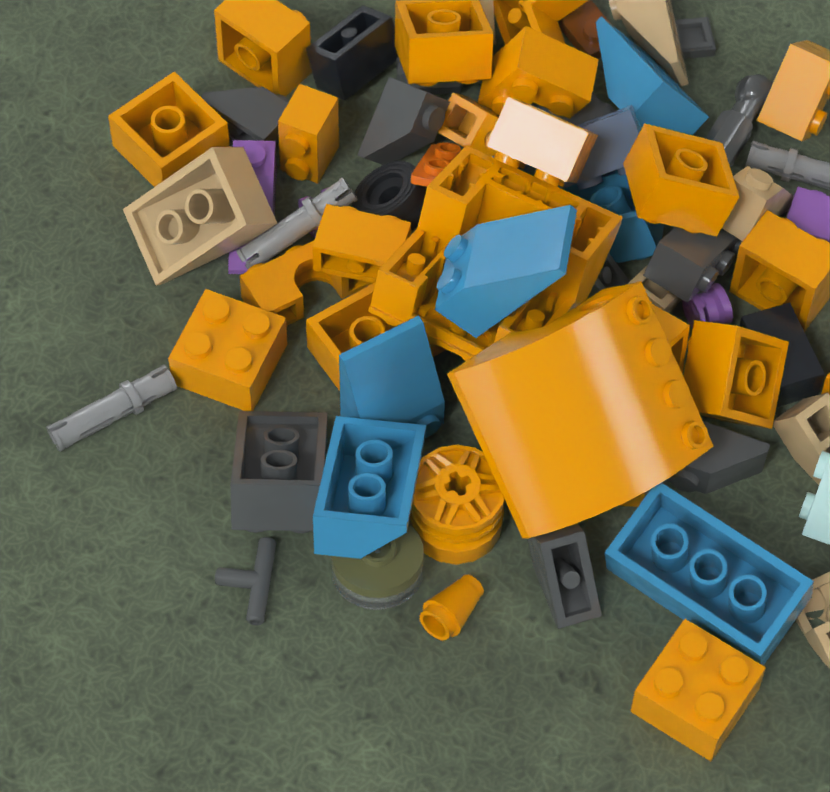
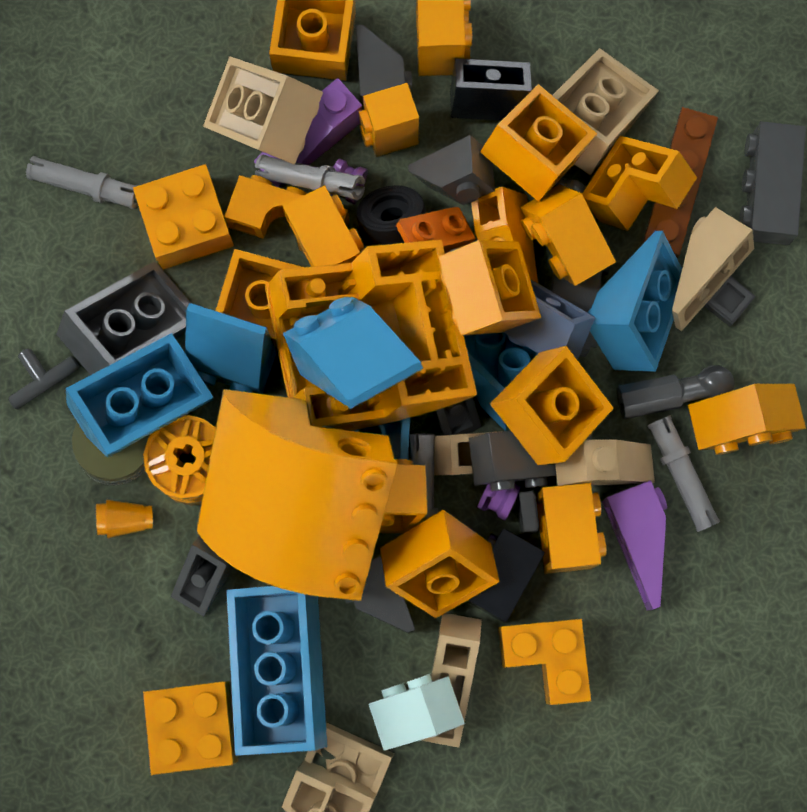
camera: 50 degrees right, 20 degrees up
(743, 295) = (527, 512): none -> dark grey tile

